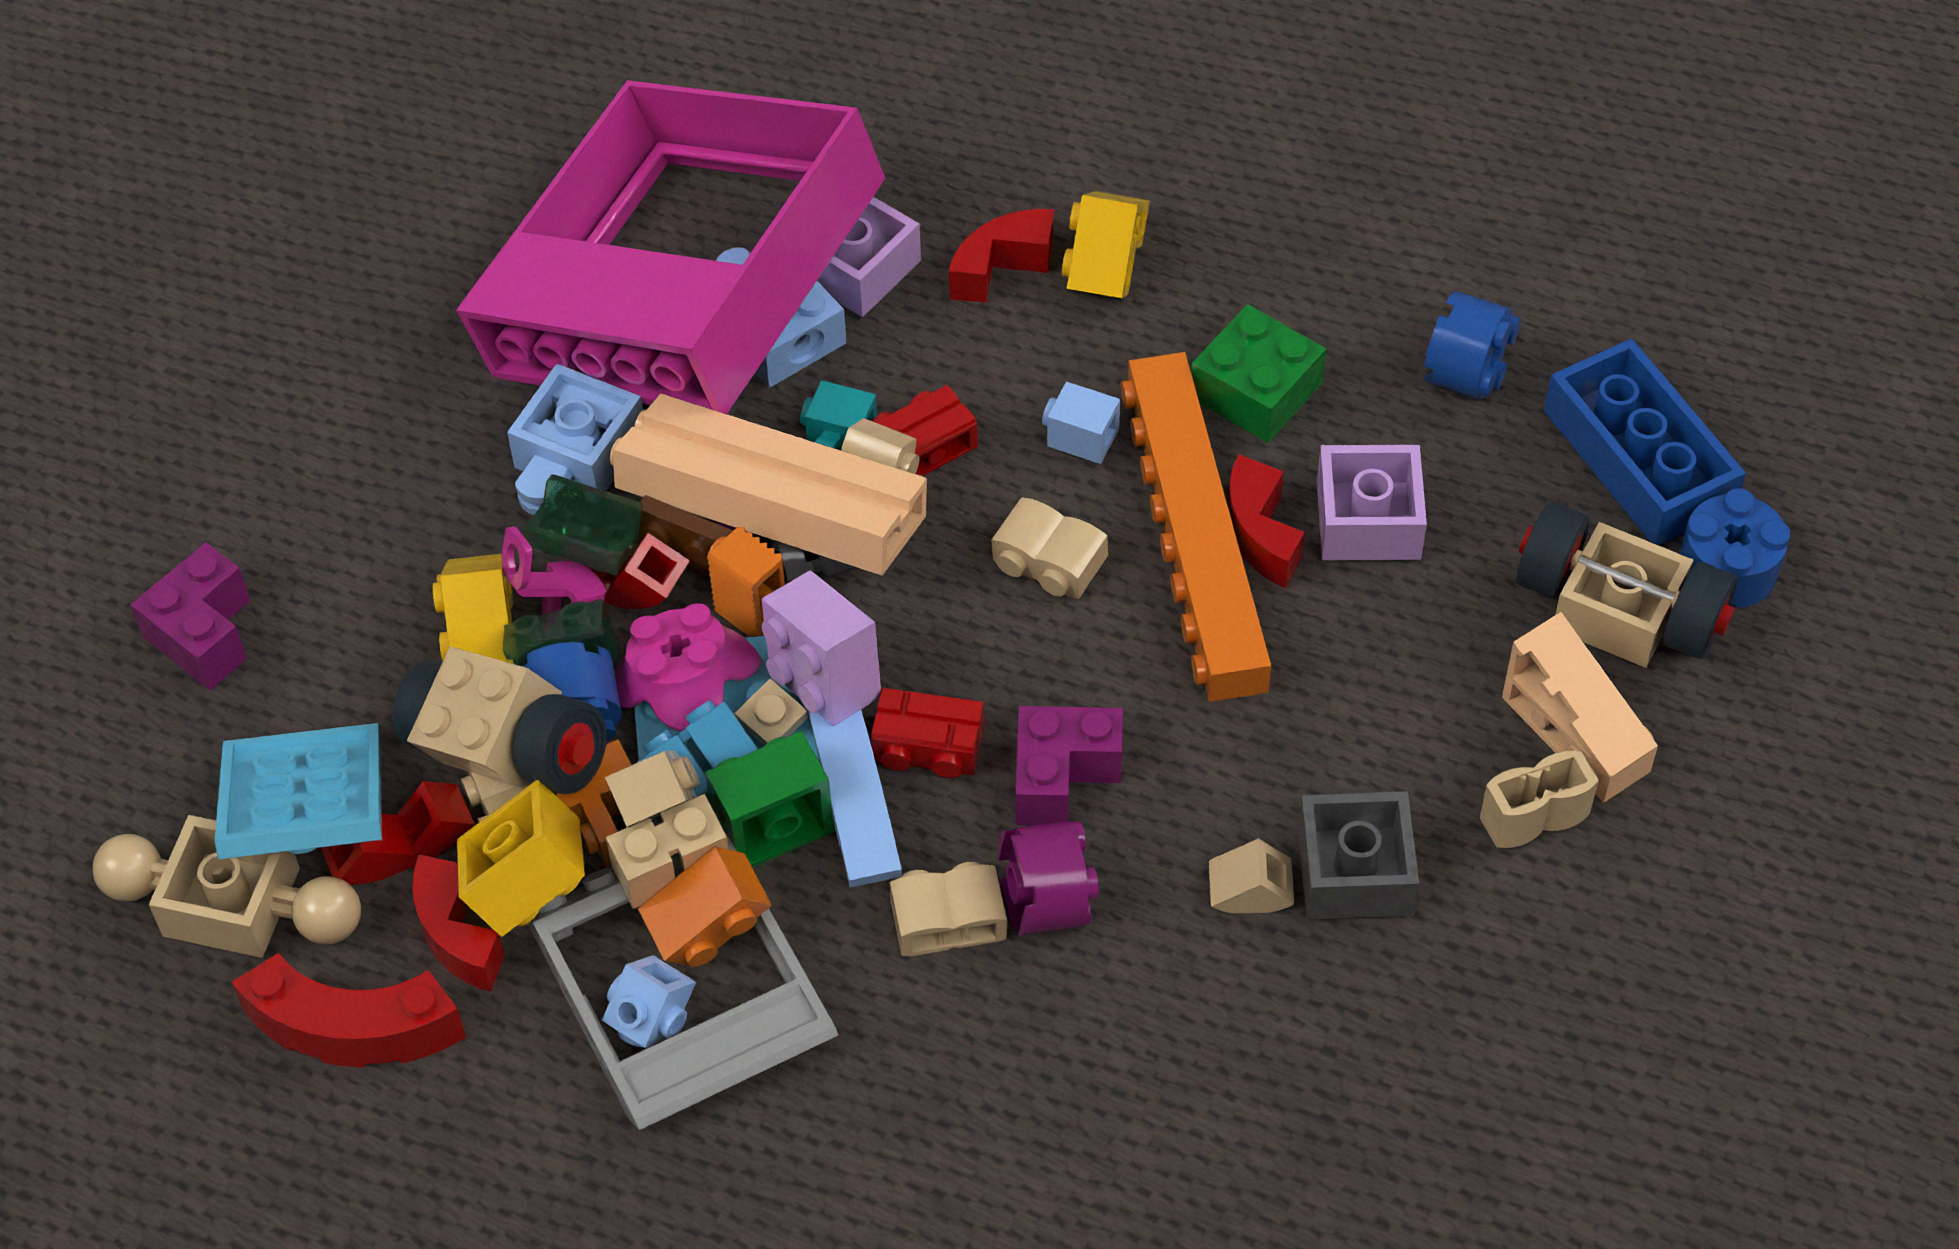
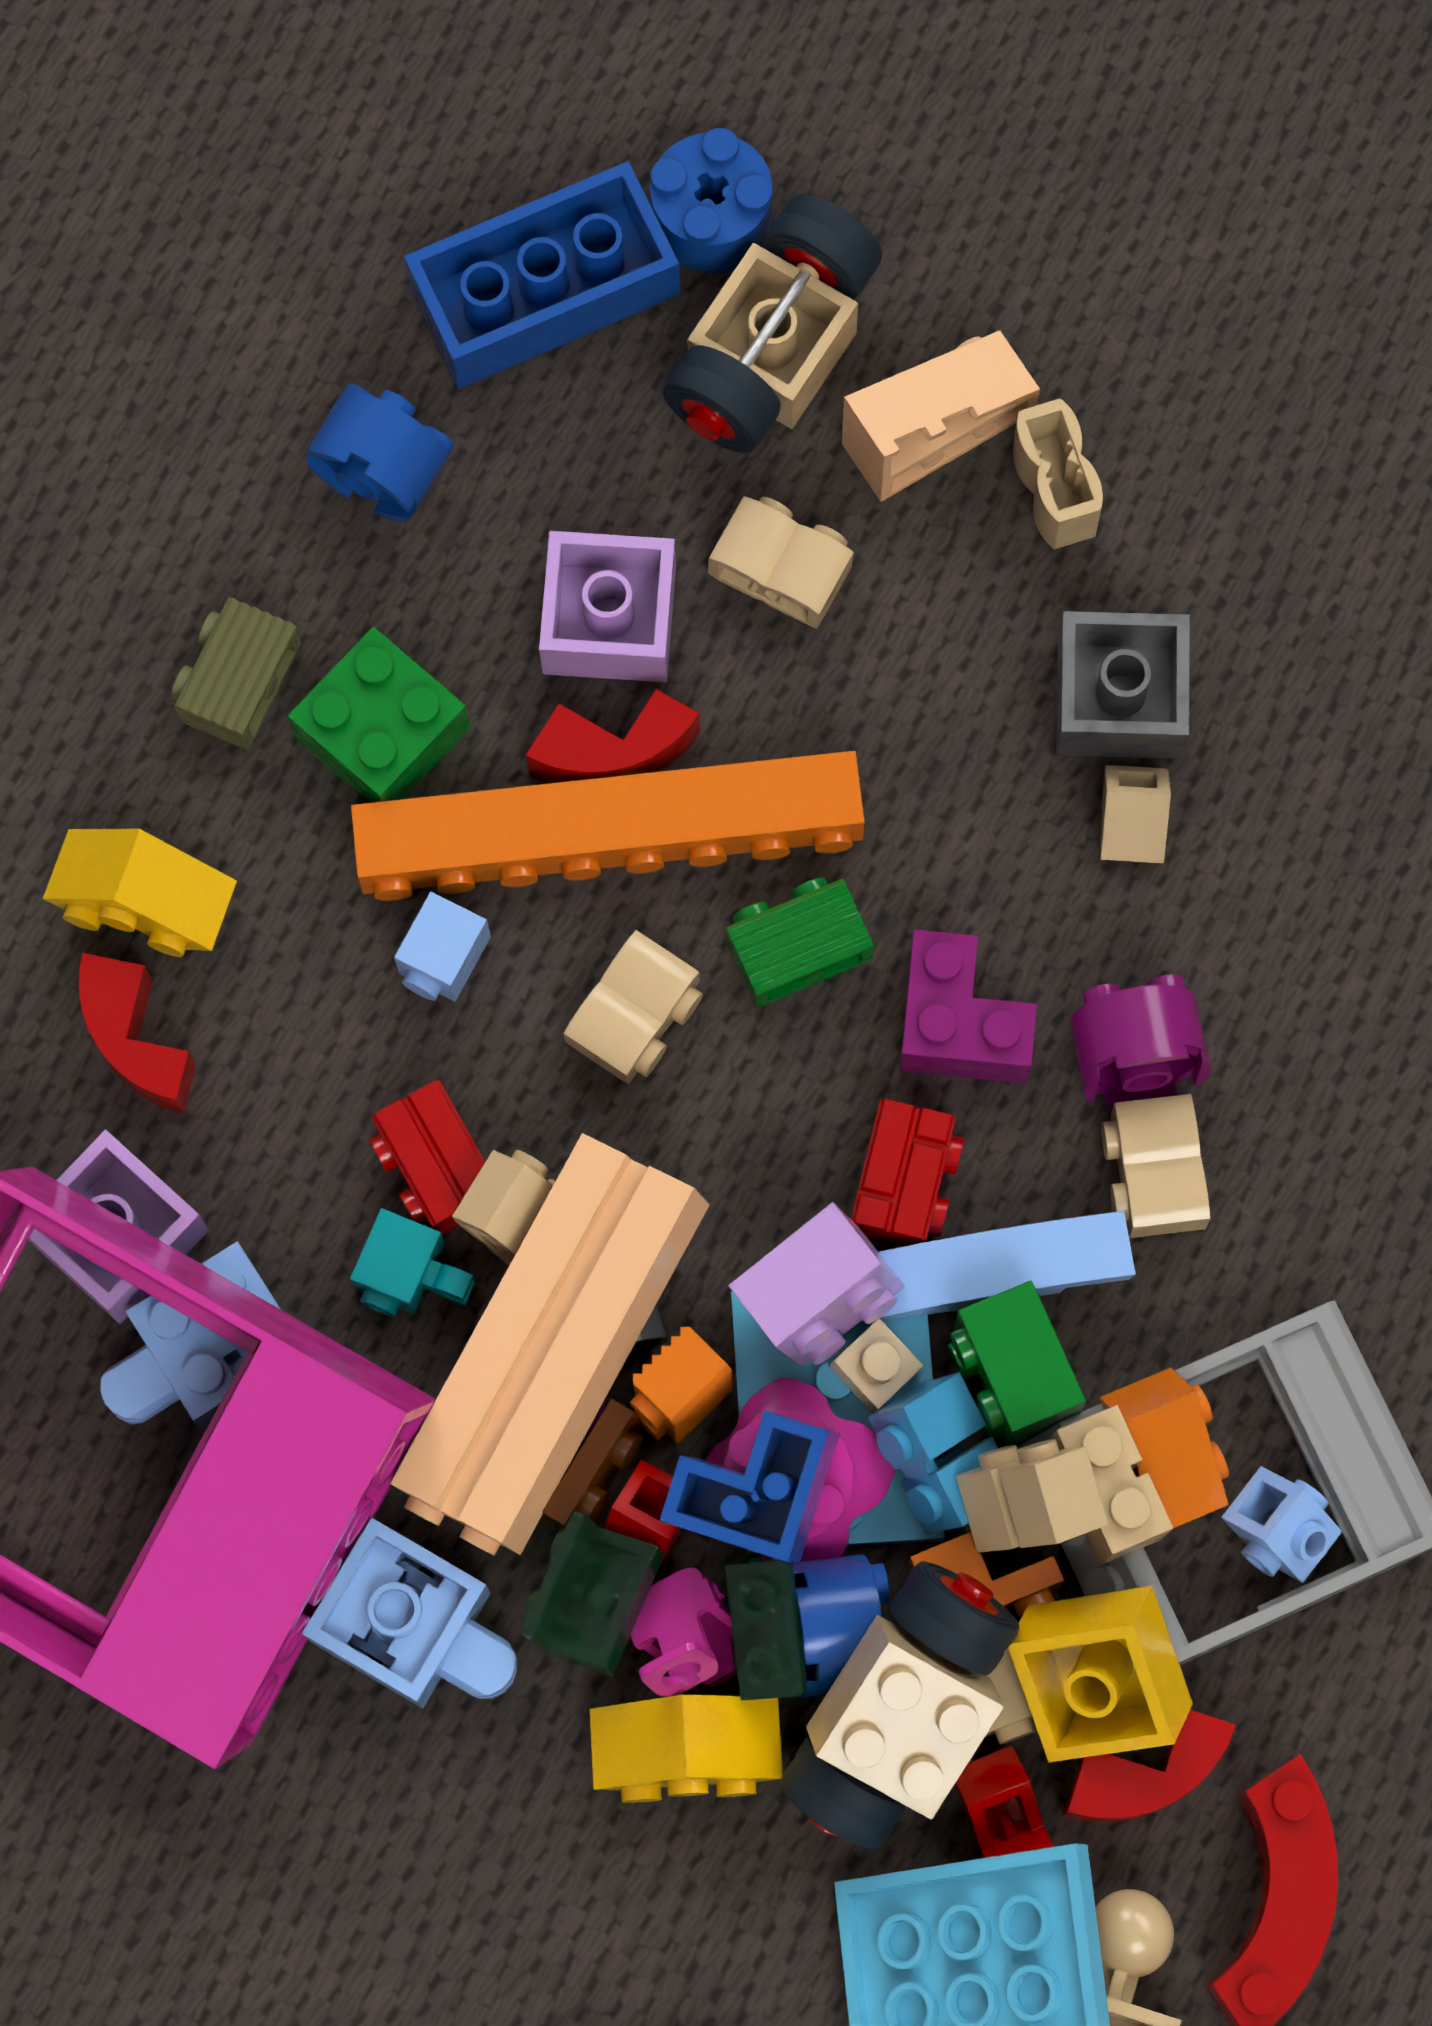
camera: 85 degrees left, 20 degrees up
(651, 603) = (767, 1505): none -> blue brick
(1113, 651) = (798, 940): none -> green brick
(1286, 289) = (236, 672): none -> olive brick
(1432, 621) = (781, 560): none -> tan brick

